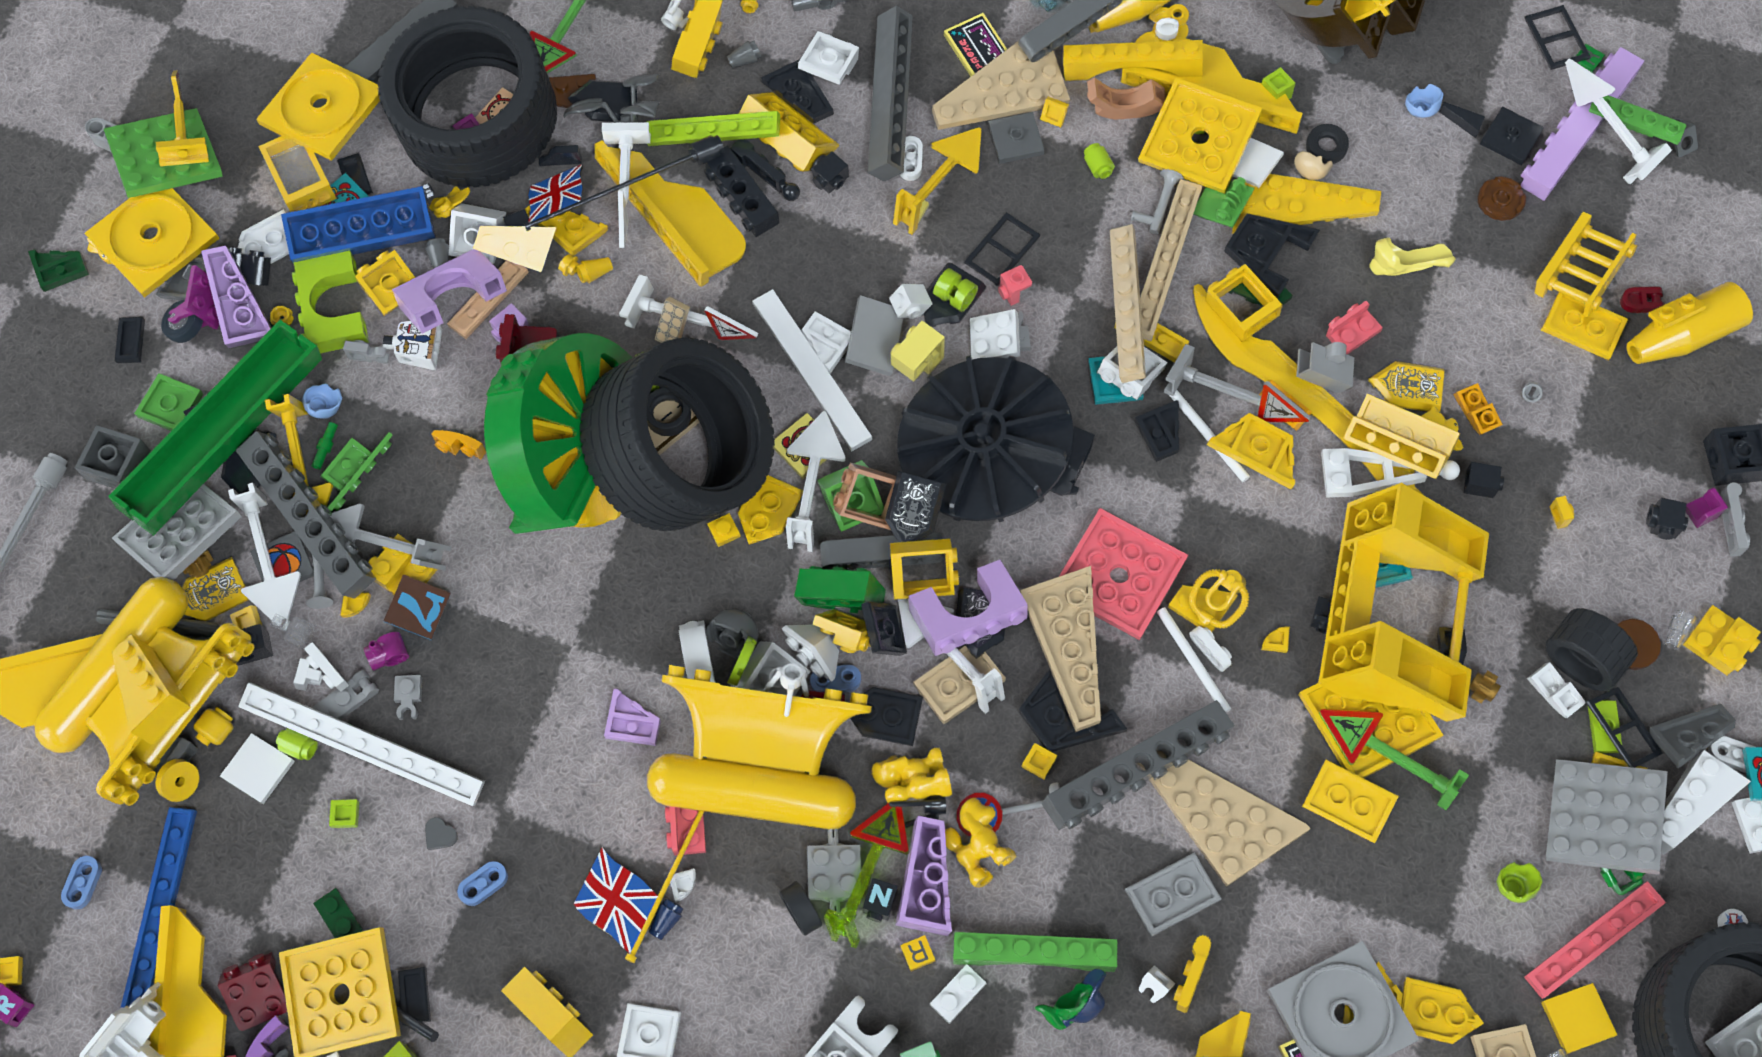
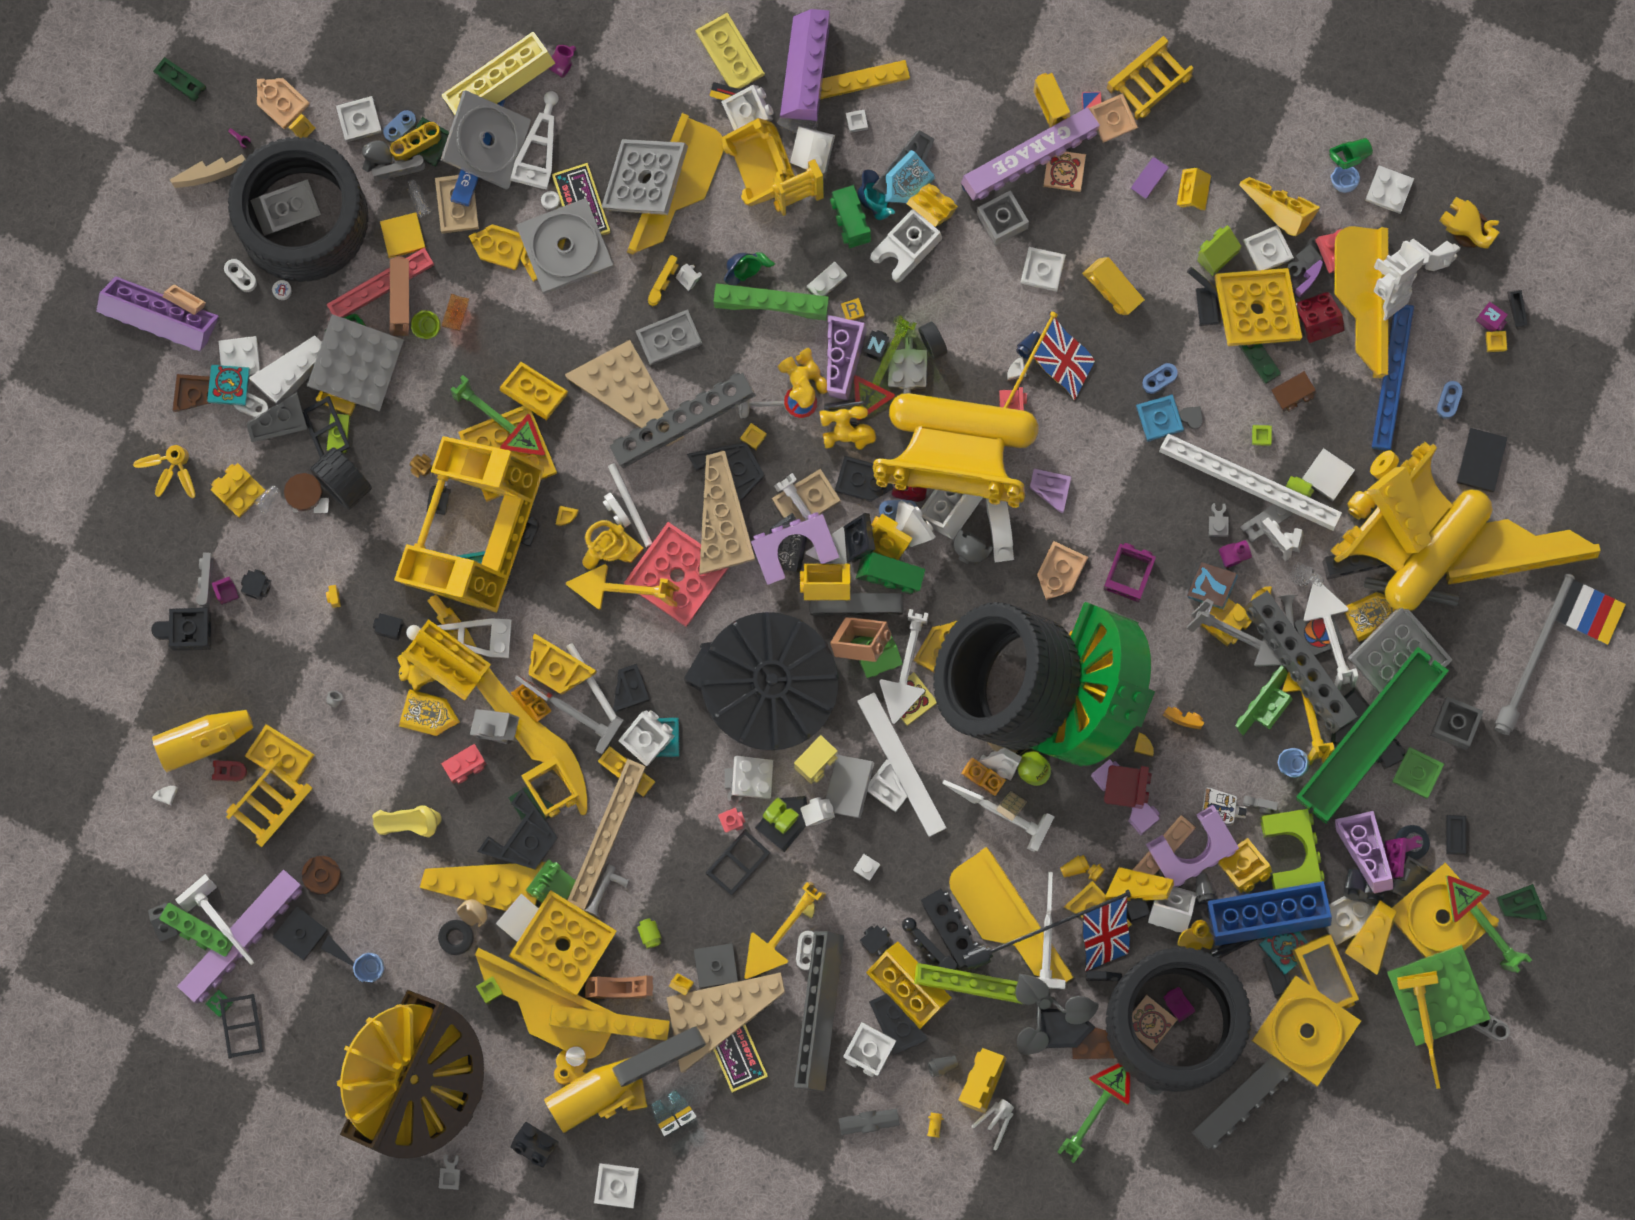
camera: 175 degrees left, 10 degrees up
(46, 804) = (1481, 460): none -> black tile
(117, 245) = (1465, 898): none -> bright green piece
(236, 208) = (1372, 939): none -> yellow wedge
(246, 617) = (1342, 585): yellow plate -> none
(280, 311) = (1332, 839): yellow plate -> none
(295, 874) = (1294, 392): none -> reddish brown brick
(324, 445) = (1290, 727): green bar -> none
(483, 830) = (1159, 417): none -> dark azure tile
(533, 593) = (1120, 589): none -> magenta window
(617, 617) = (1060, 570): none -> light nougat tile
(742, 661) = (966, 512): lime tile -> none
(790, 678) = (930, 477): white plant -> none
(846, 253) = (866, 867): none -> white plate
(914, 507) = (829, 624): black tile -> none
(1127, 304) = (643, 791): tan plate -> none
(1227, 547) = (593, 585): none -> yellow piece
(1477, 410) = (379, 688): light orange slope -> none
(1480, 902) = (455, 312): none -> clear orange hips
(1552, 687) = (367, 462): white slope -> none
(1567, 915) = (399, 296): none -> nougat slope
(1712, 270) = (166, 794): none -> white tile

